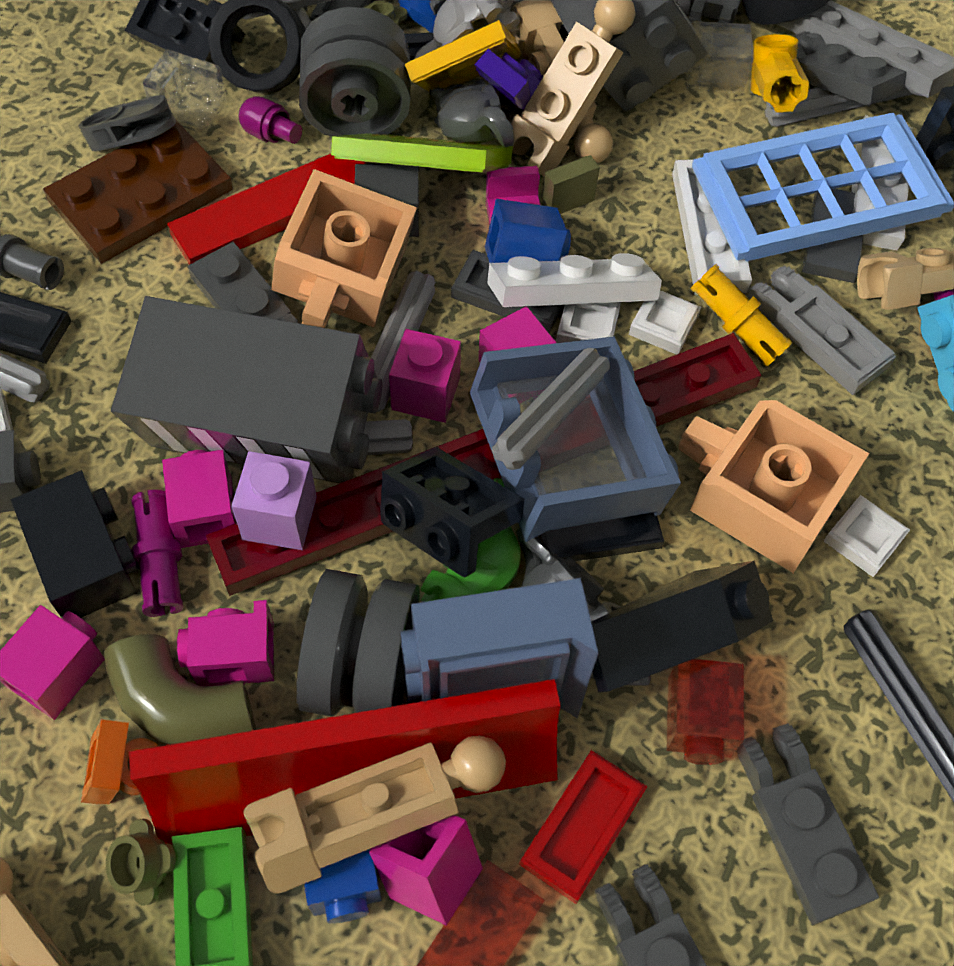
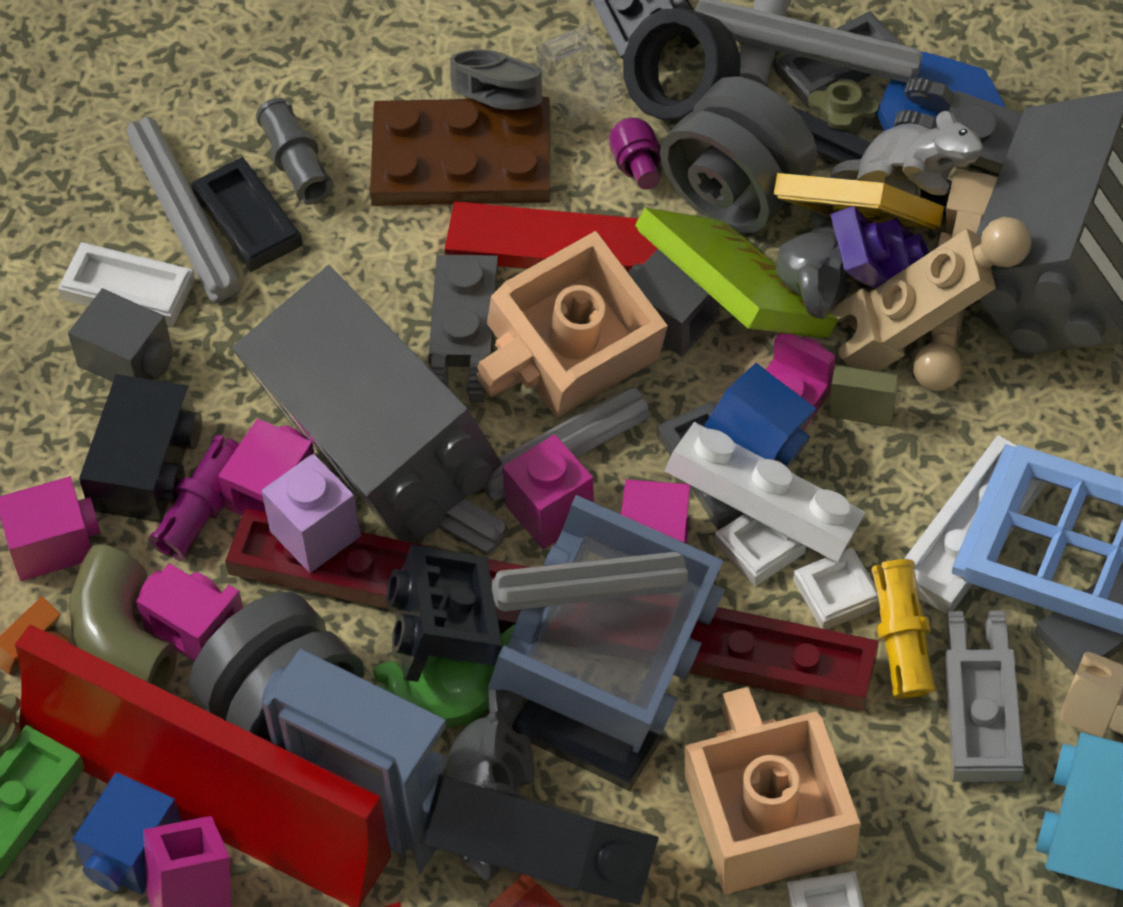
camera: 45 degrees right, 5 degrees down
(365, 809) = (165, 793): tan plate -> none

